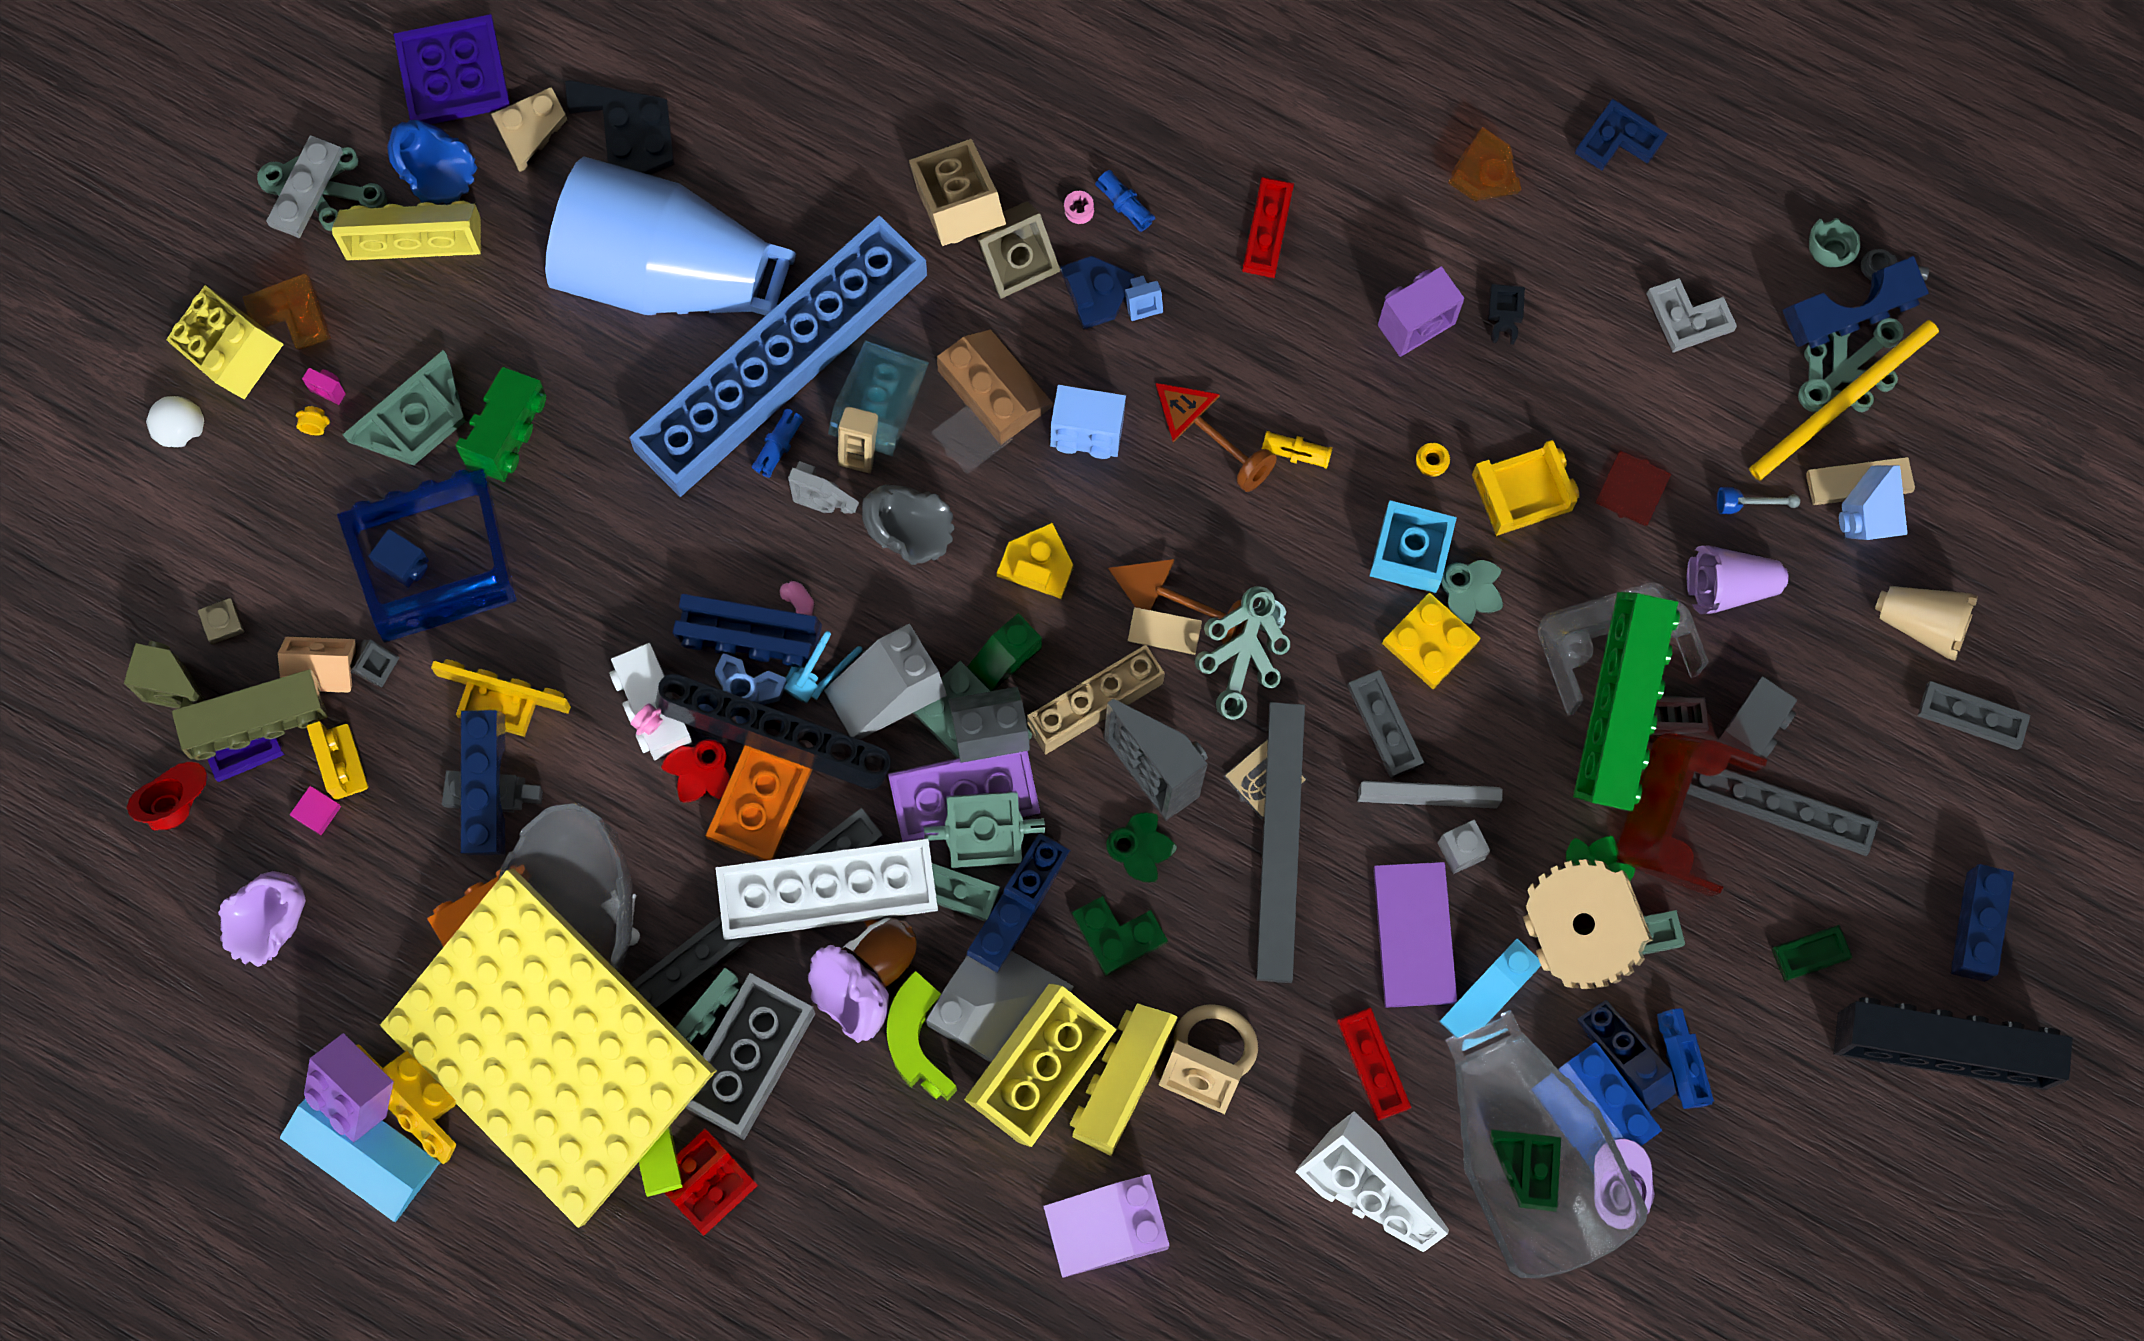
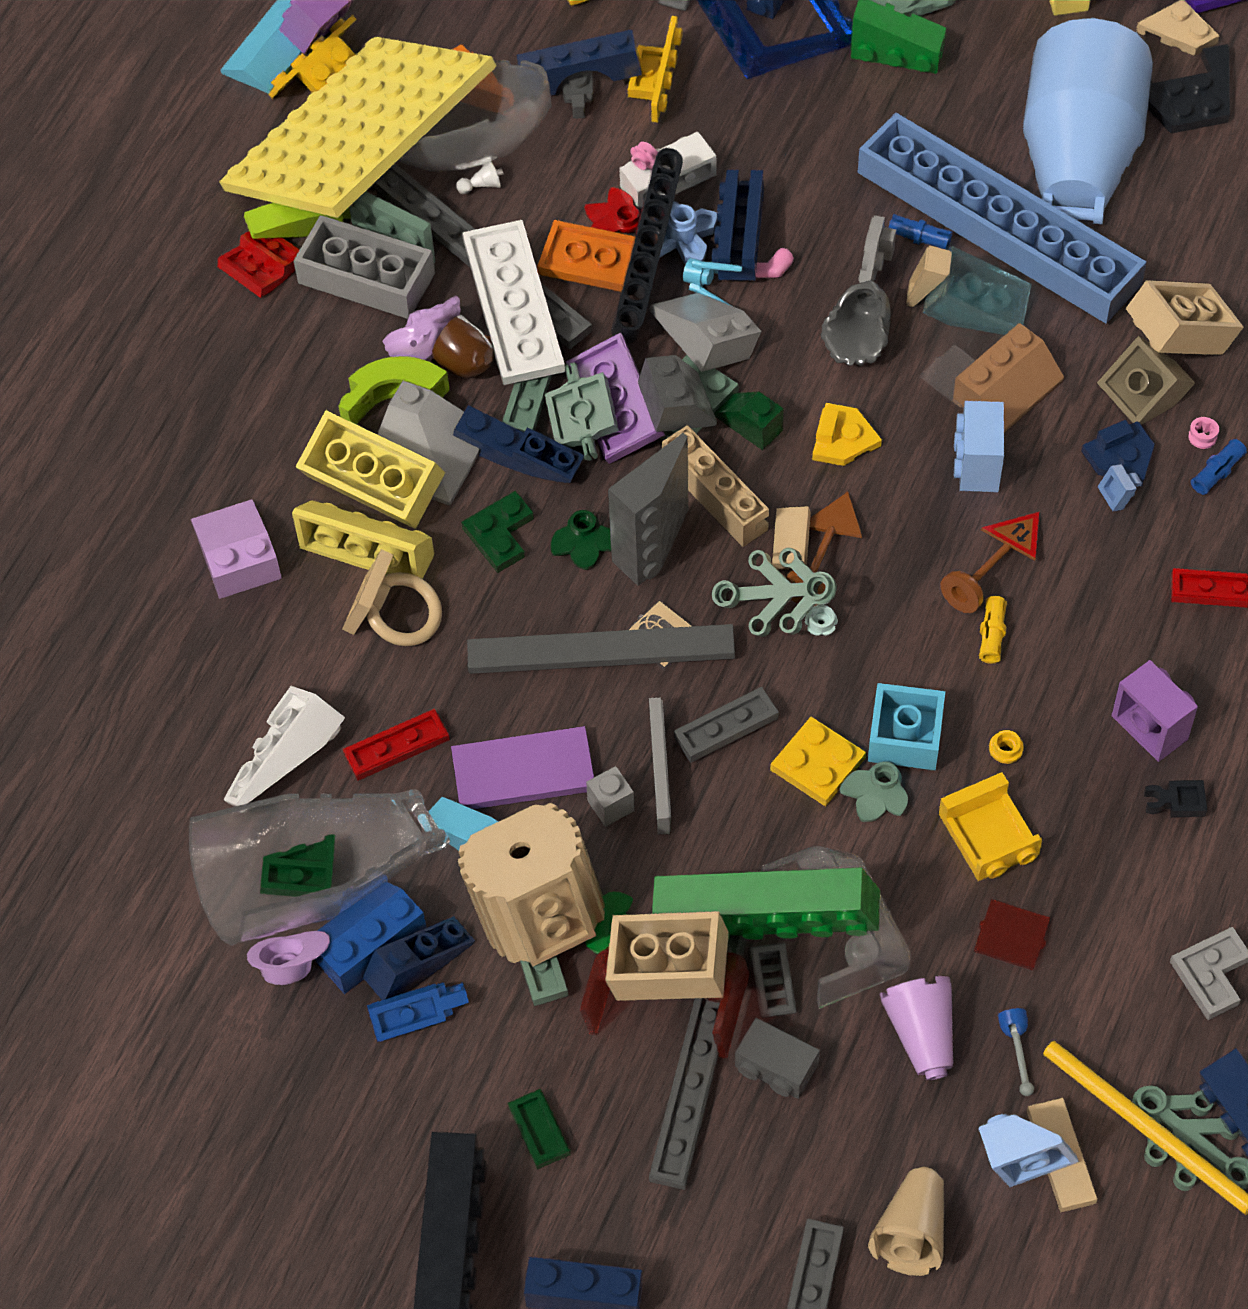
camera: 90 degrees right, 15 degrees down
(1698, 794) = (667, 956): none -> tan brick

